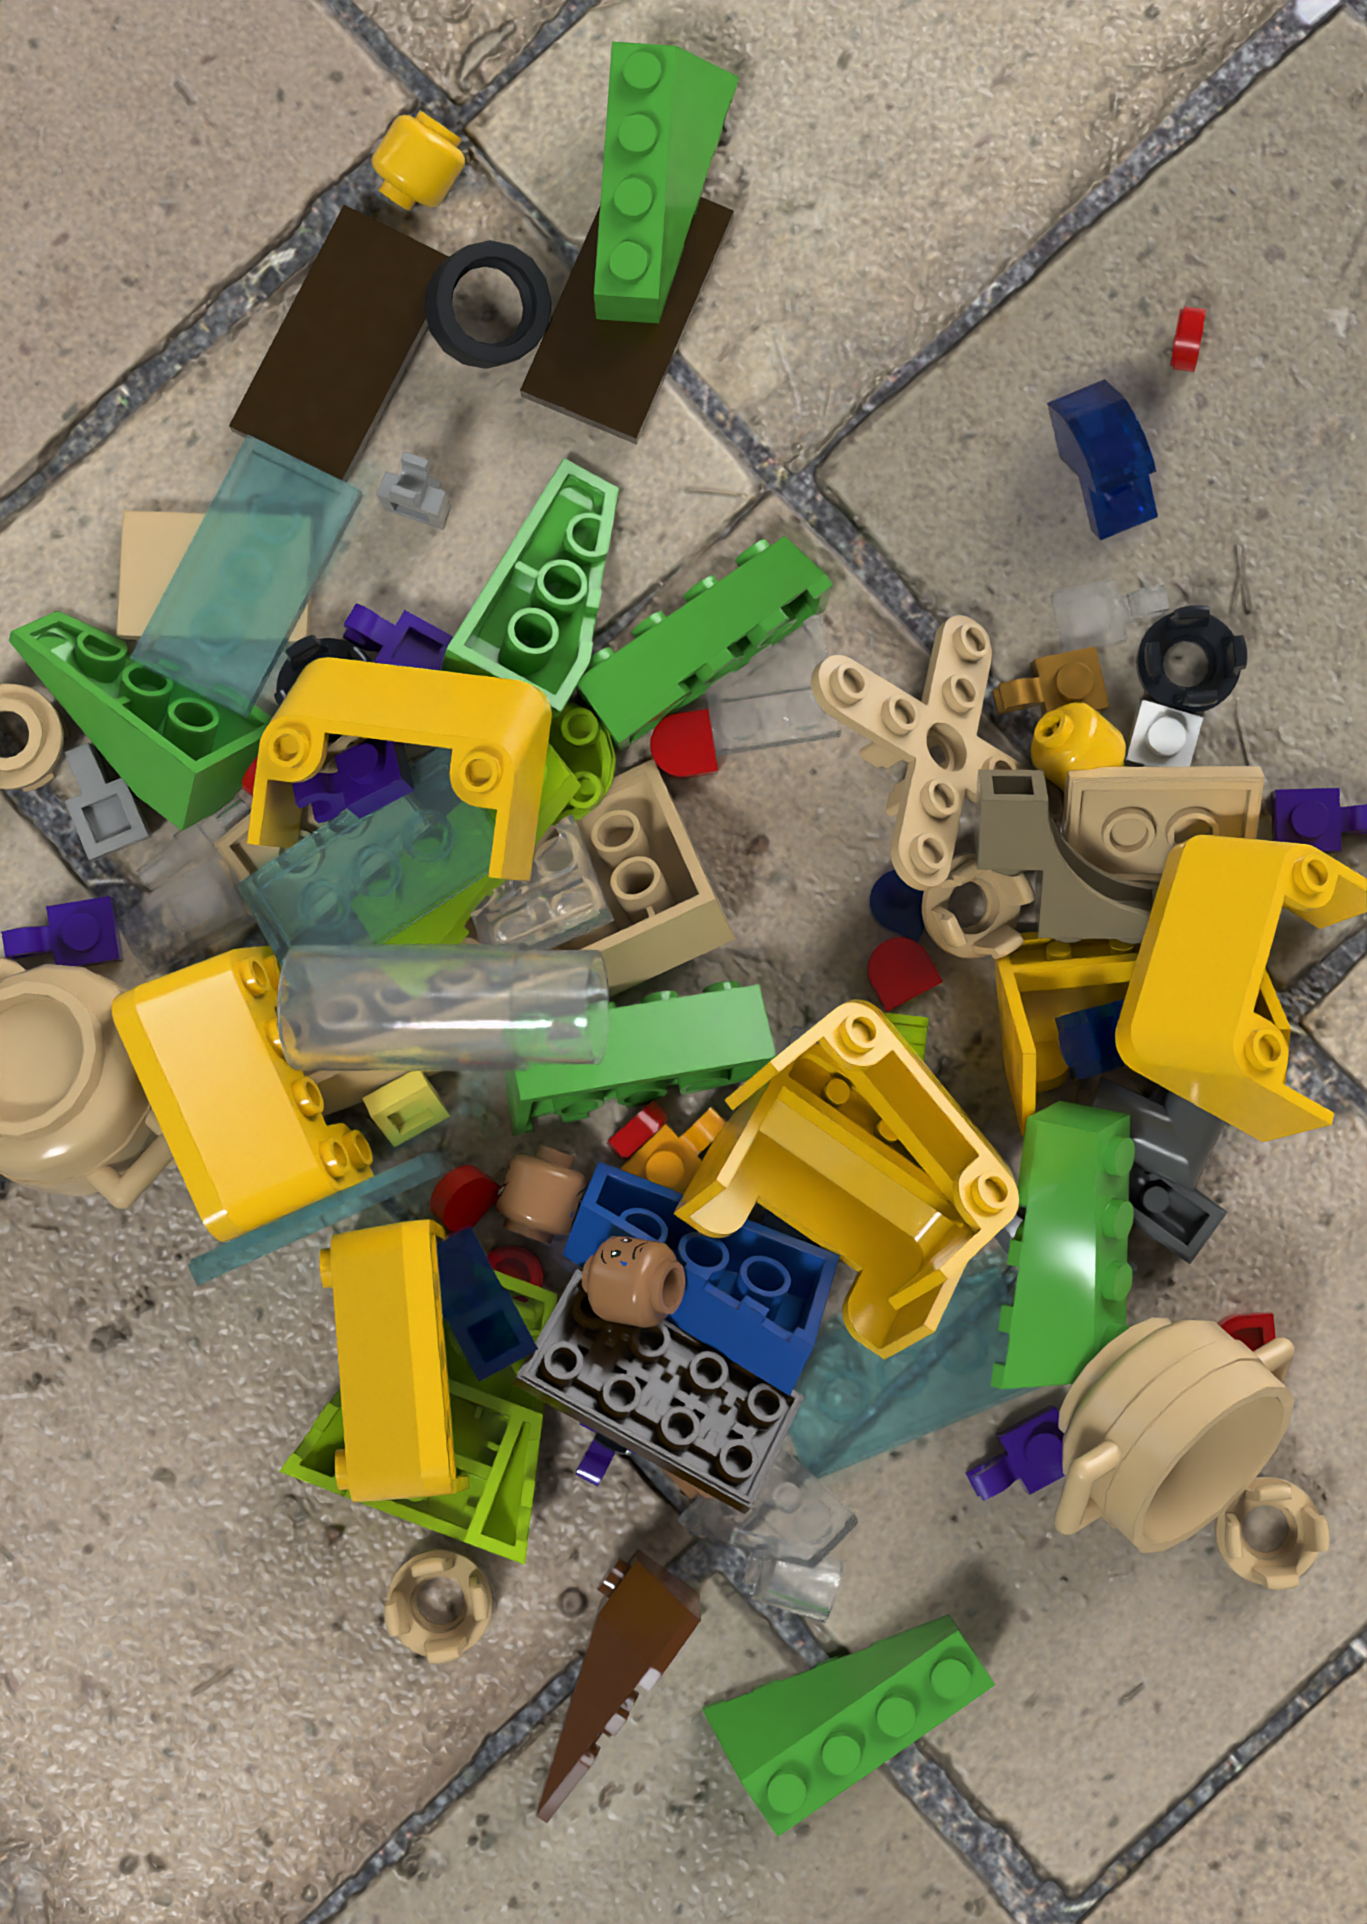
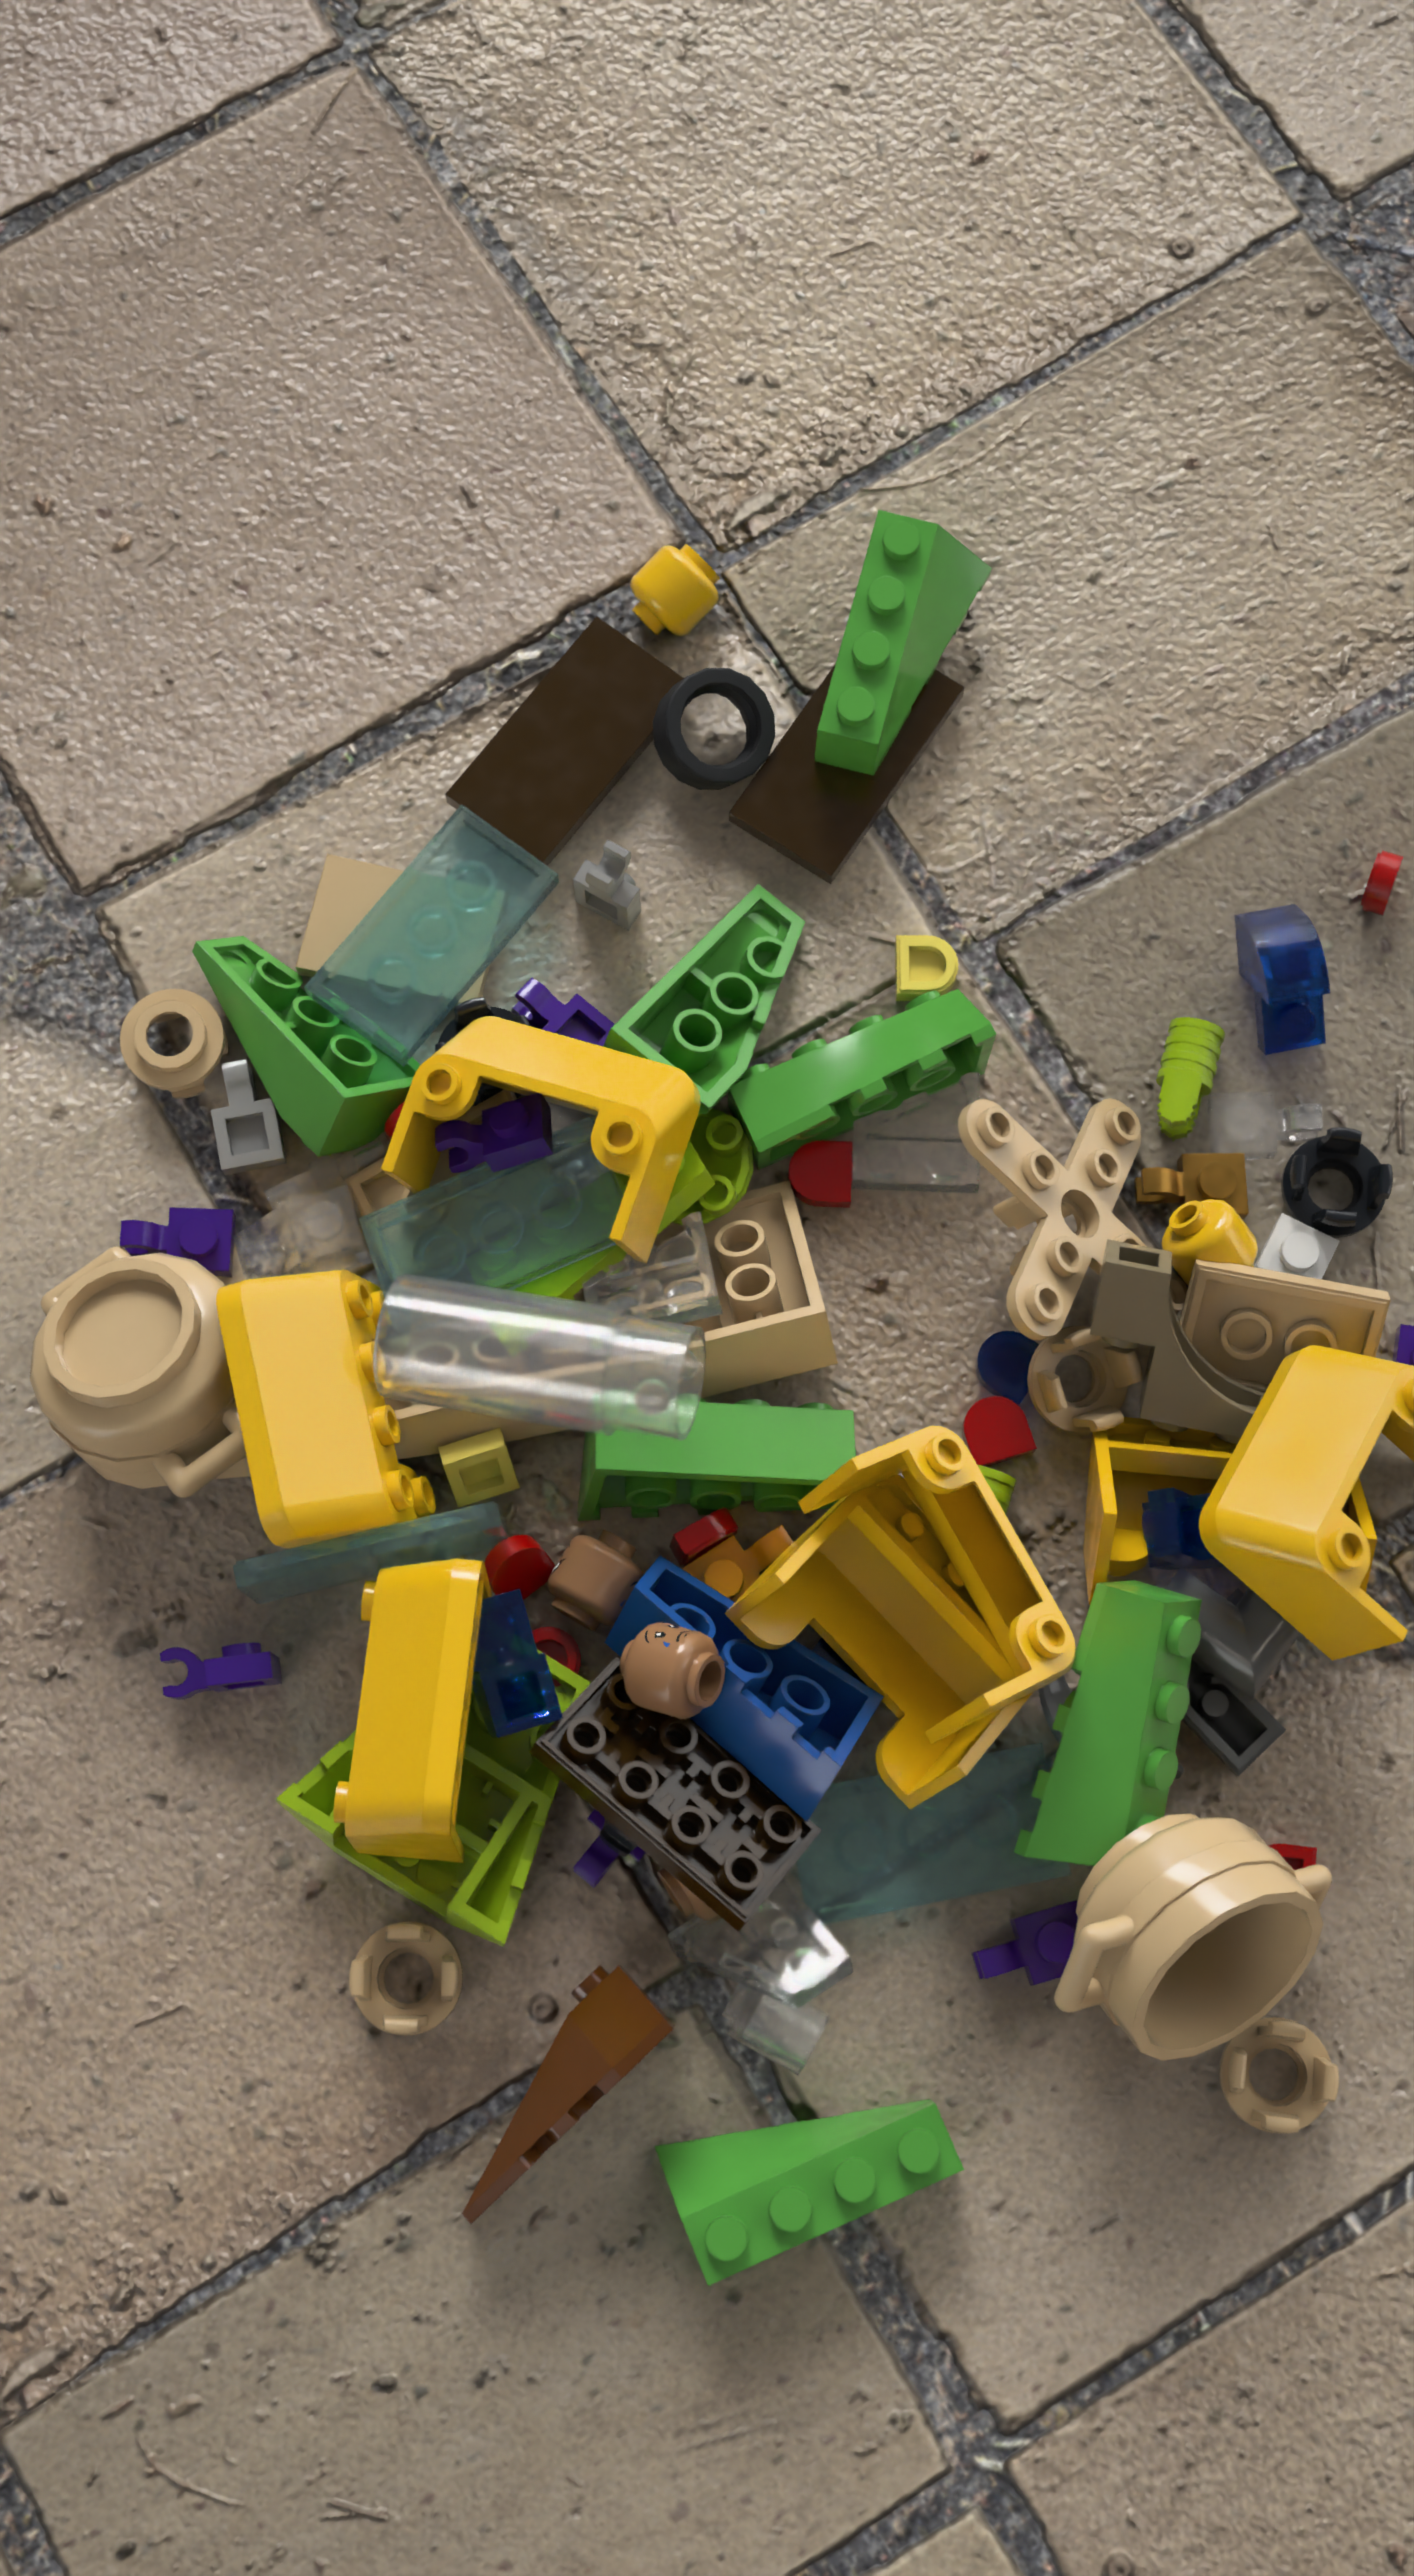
camera: 15 degrees right, 10 degrees down
(215, 1346) = (238, 1668): none -> dark purple plate
(745, 513) = (923, 966): none -> light yellow tile
(1026, 574) = (1186, 1073): none -> lime hinge

